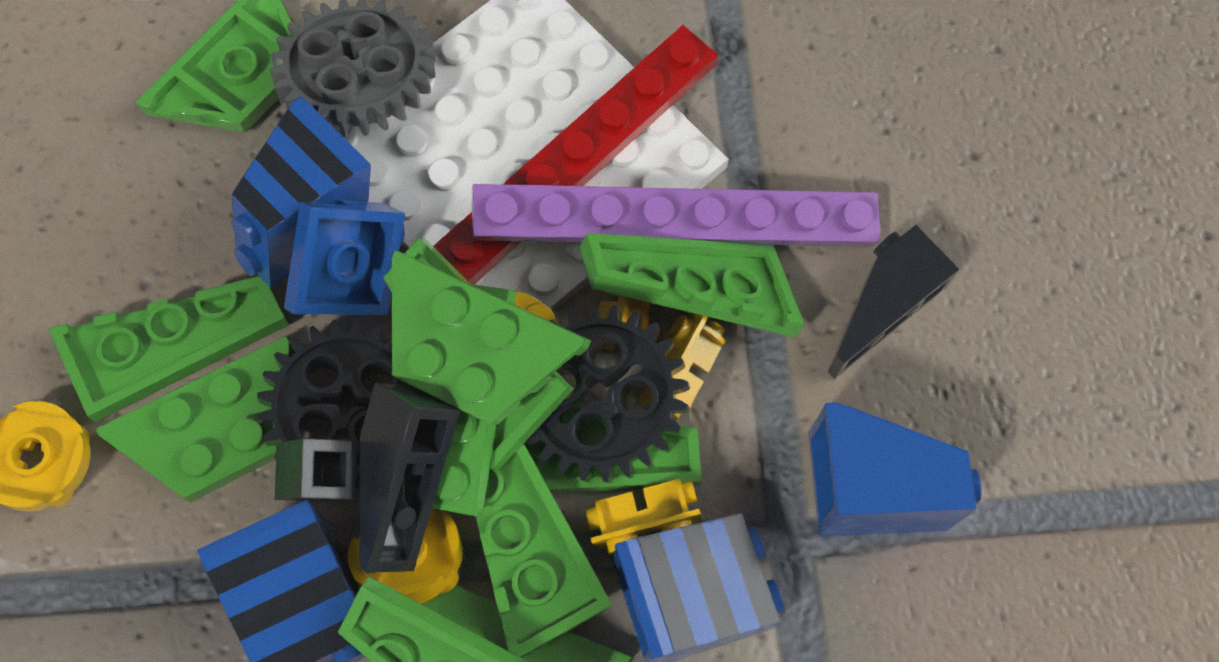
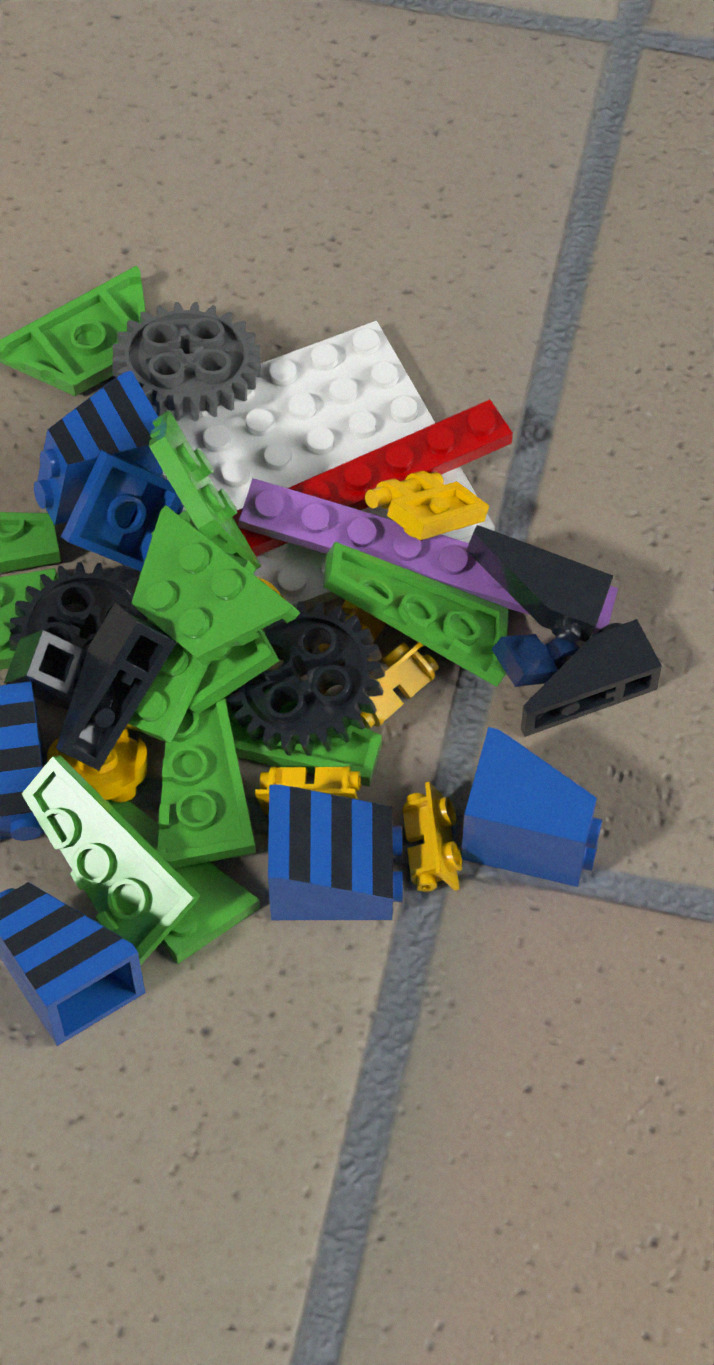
camera: 20 degrees right, 10 degrees down
(406, 205) = (189, 476): none -> bright green wing
(662, 161) = (426, 505): none -> yellow plate
(798, 547) = (431, 820): none -> yellow hinge
(820, 217) = (547, 585): none -> black slope
(823, 299) = (529, 660): none -> dark blue plate

